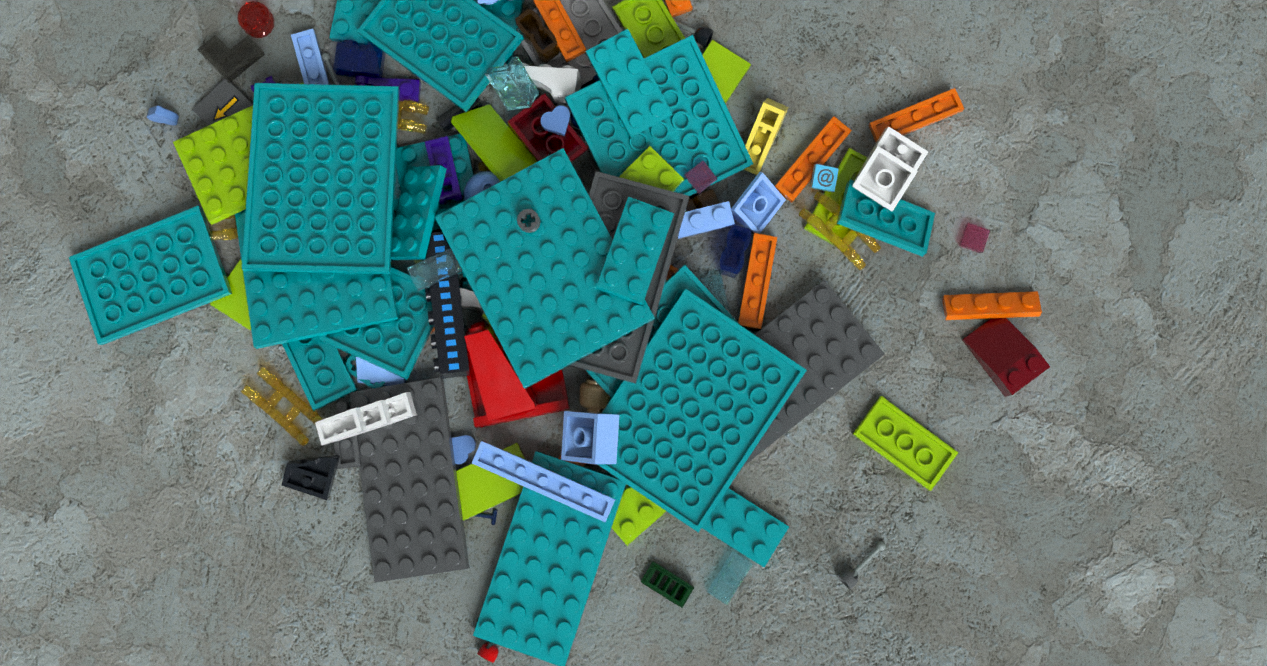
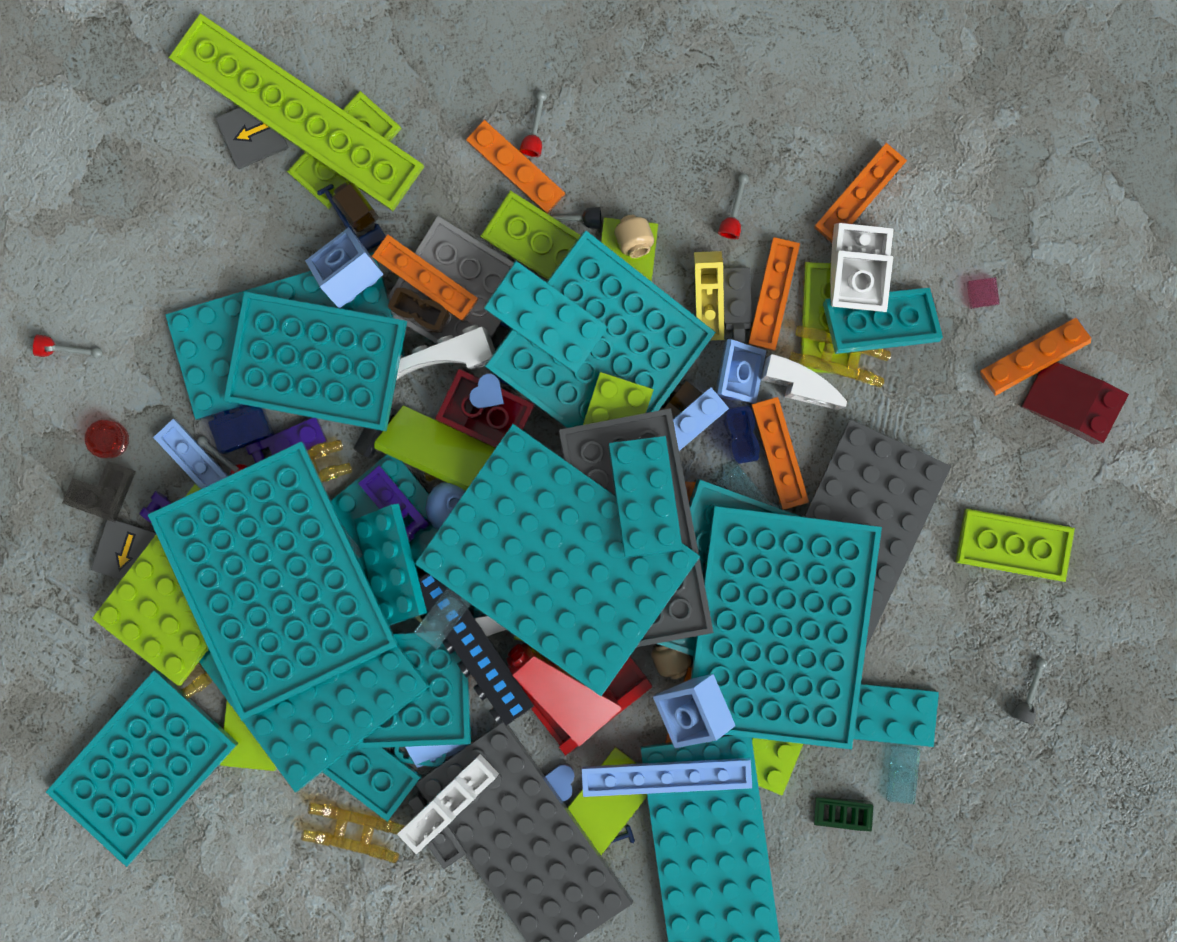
camera: 25 degrees left, 5 degrees up
(162, 115) = (63, 592): medium blue tile -> none
(312, 475) = (421, 888): black wing -> none
(513, 85) = (422, 378): clear light blue bracket -> none
(523, 216) = (509, 518): dark grey bush -> none
(700, 177) = (668, 375): clear pink tile -> none
(727, 62) = (634, 236): none -> tan head
(782, 150) = (737, 301): none -> dark grey hinge
(800, 233) = (801, 383): none -> white slope
(805, 93) = (731, 227): none -> hinge
(824, 178) = (796, 309): medium azure tile -> none

